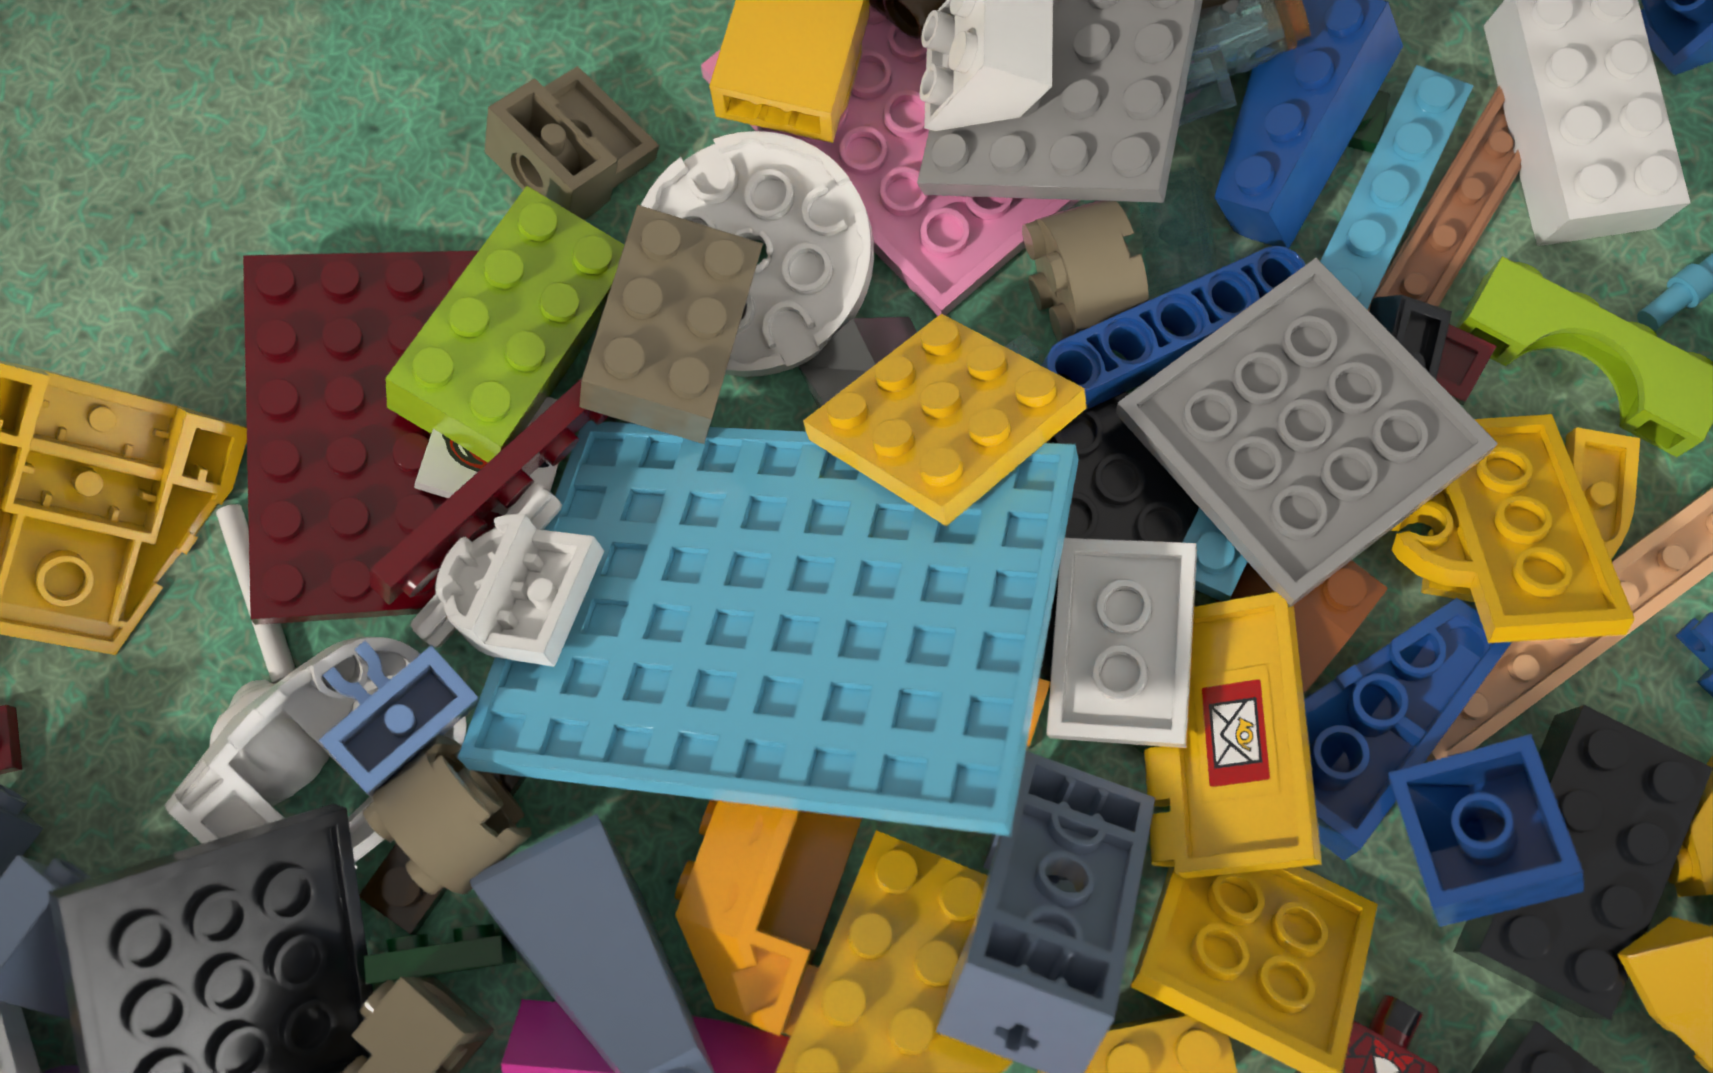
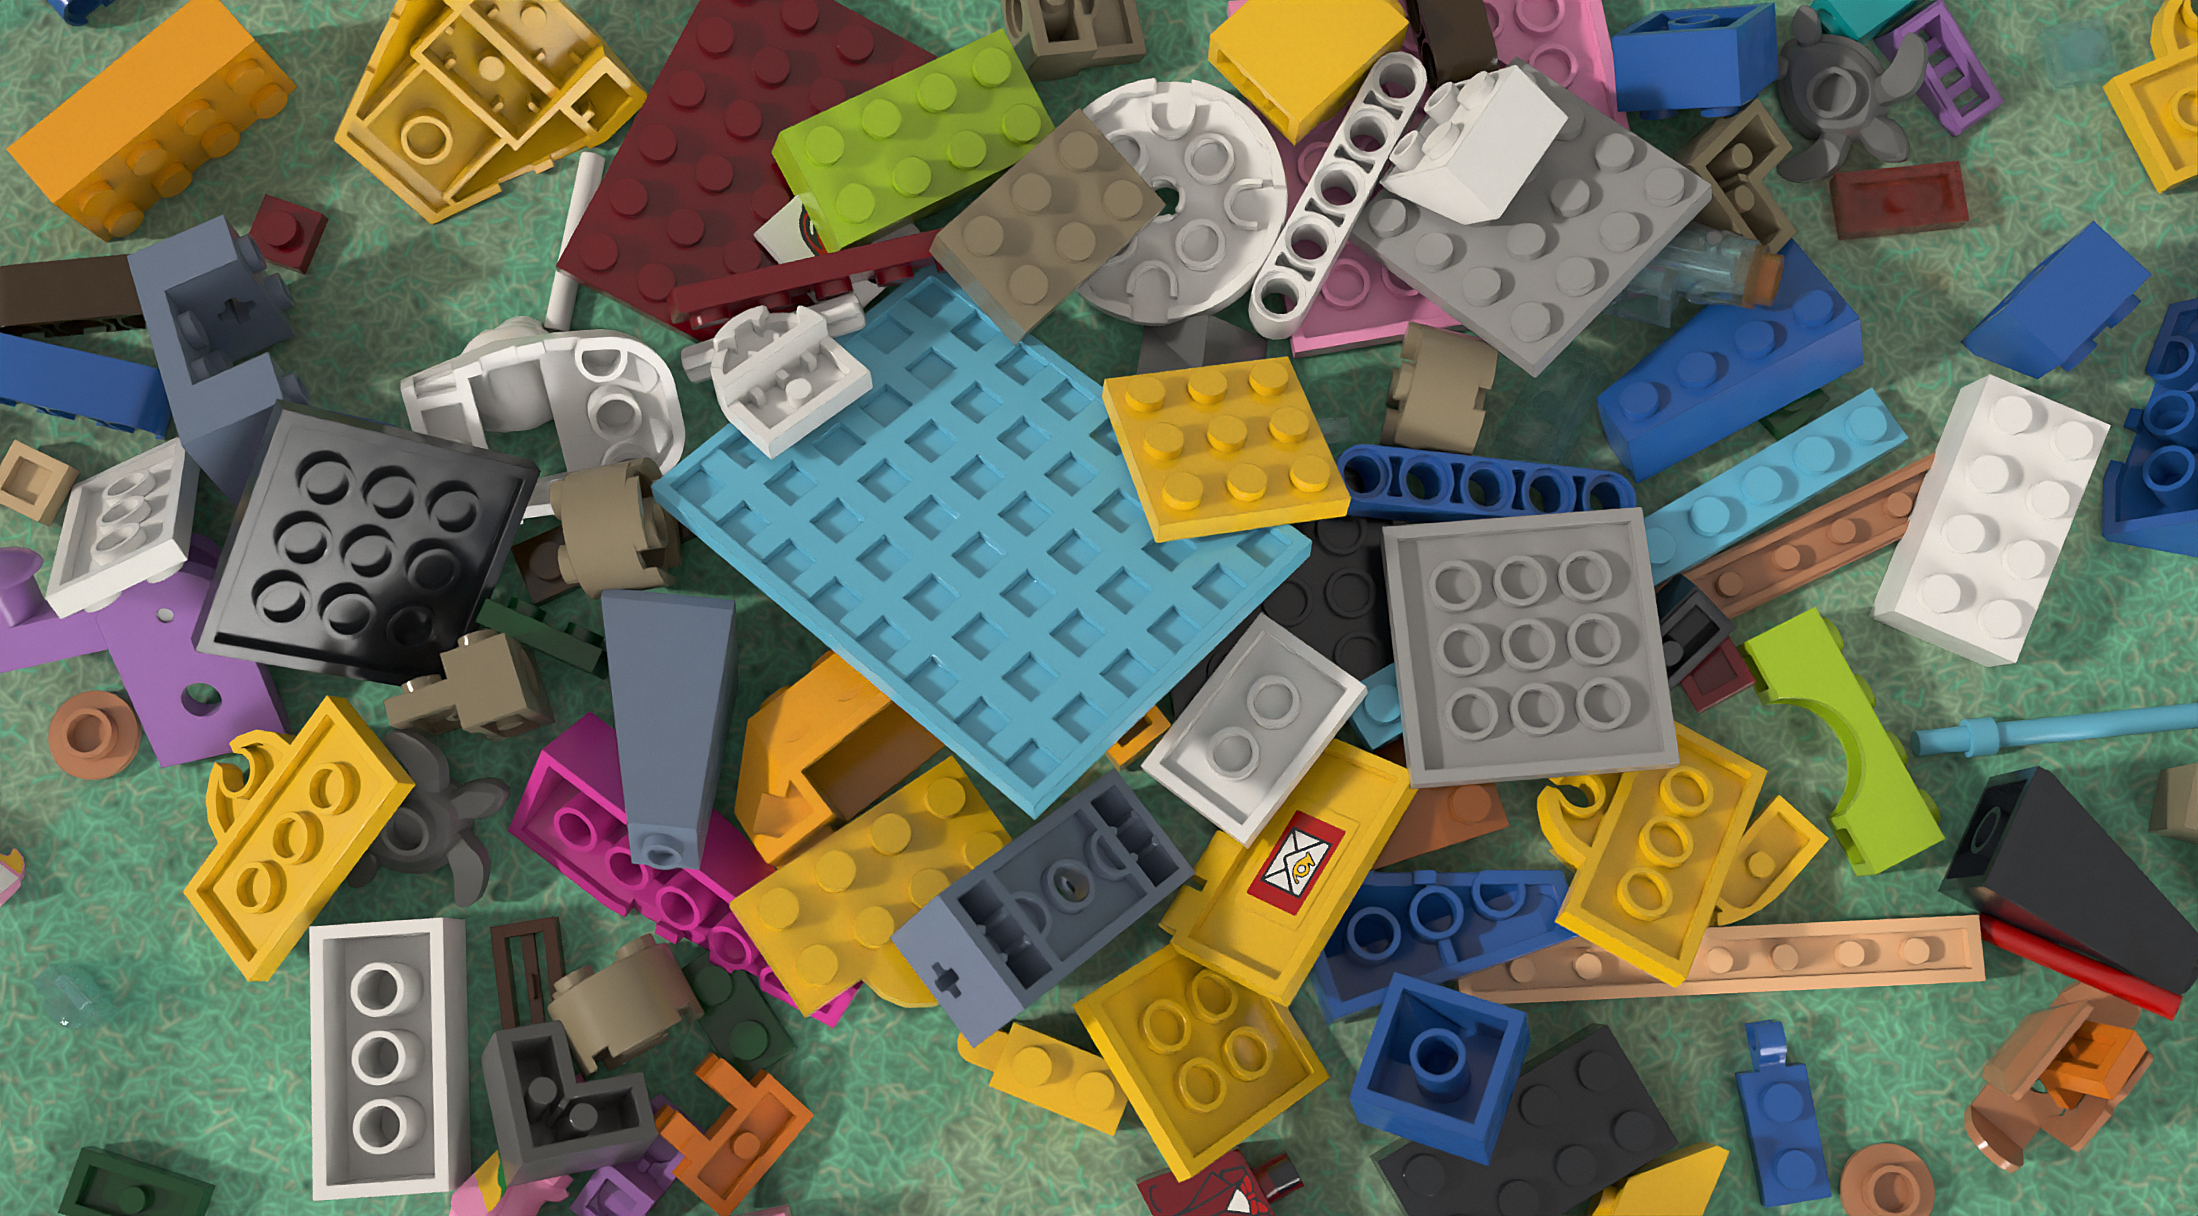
camera: 30 degrees right, 5 degrees up
(397, 718) = (621, 424): medium blue brick -> none
(901, 135) = (1342, 167): none -> white beam

